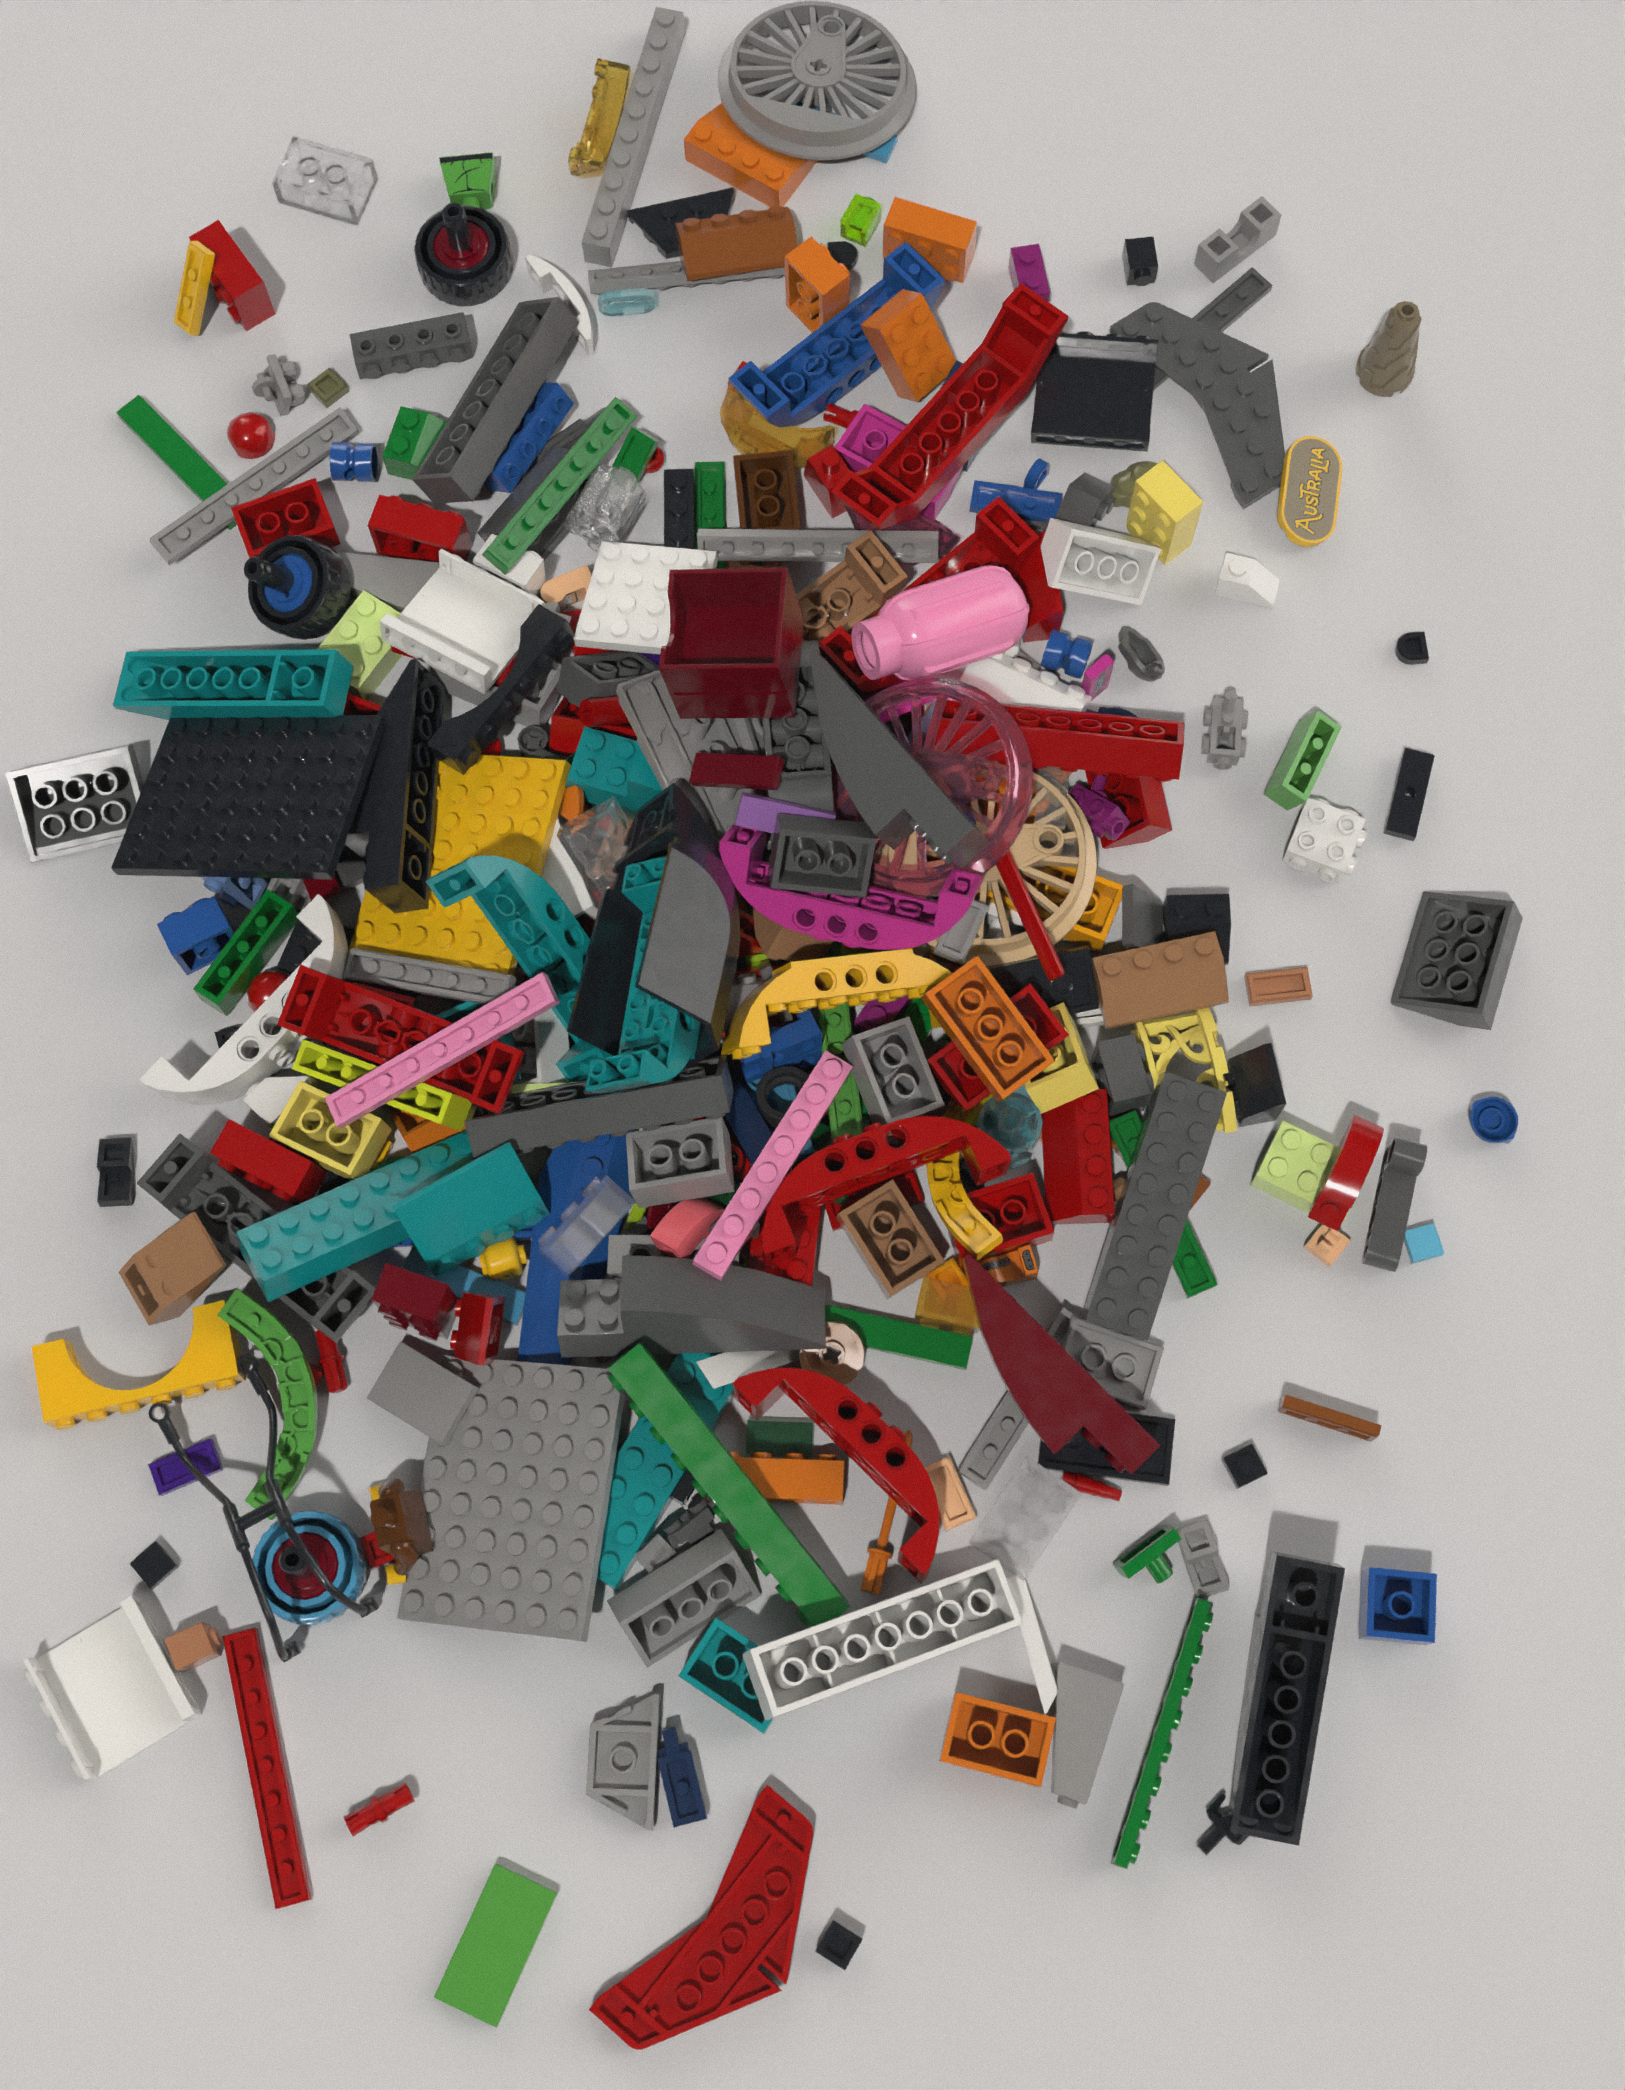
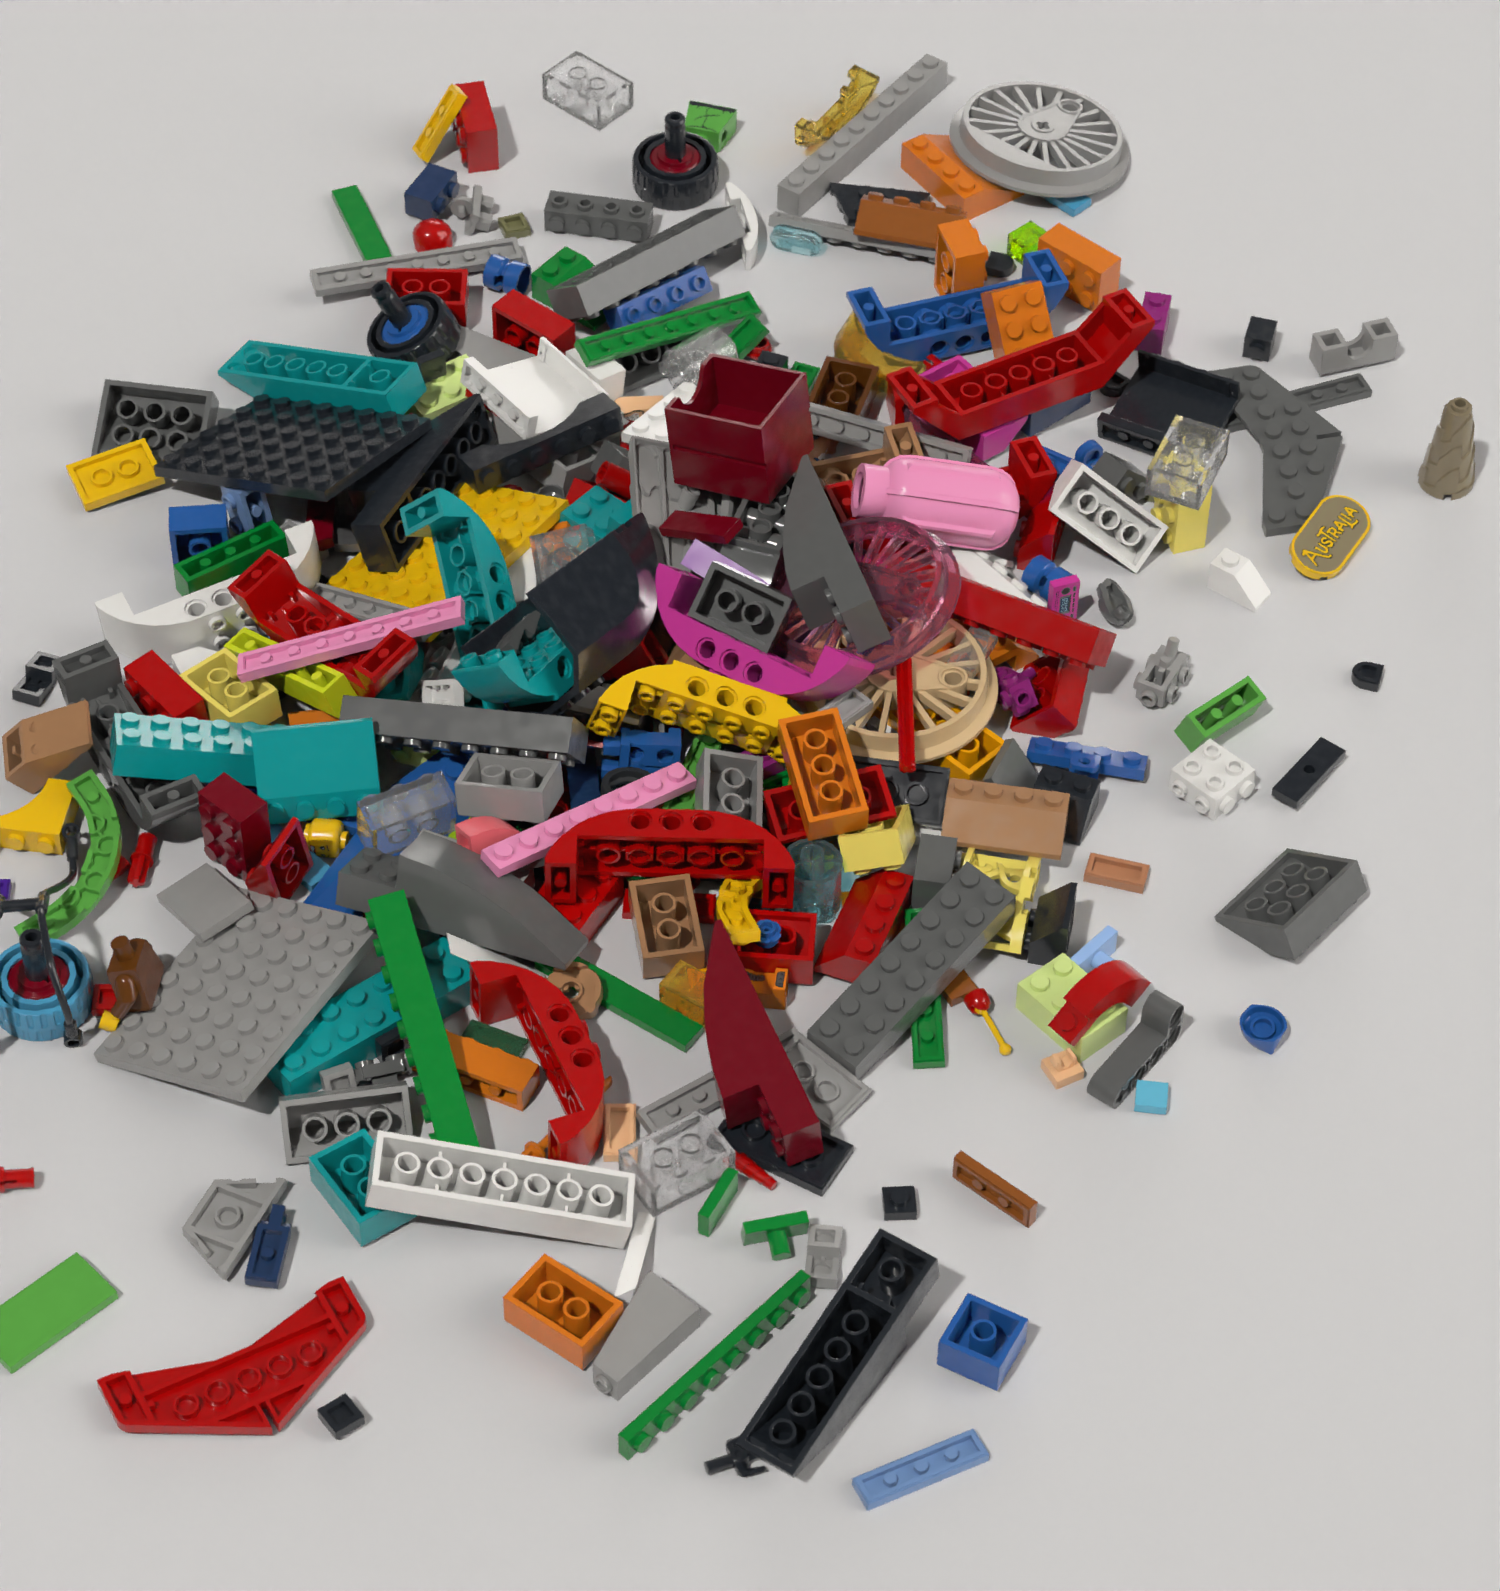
camera: 20 degrees right, 25 degrees down
(68, 881) = (114, 474): none -> yellow plate
(224, 379) = (431, 192): none -> dark blue brick
(341, 629) = (432, 365): none -> black tile
(561, 1071) = (445, 692): none -> white tile
(611, 998) = (524, 631): none -> dark grey slope
(1003, 1213) = (769, 933): none -> blue plate
(1080, 1542) = (717, 1201): none -> green tile
(1176, 490) = (1187, 462): none -> clear brick
(1194, 862) = (1087, 759): none -> blue plate
(1221, 1201) = (978, 1004): none -> hinge
(1306, 1102) = (1097, 950): none -> light blue tile
(1394, 1764) = (920, 1469): none -> medium blue tile

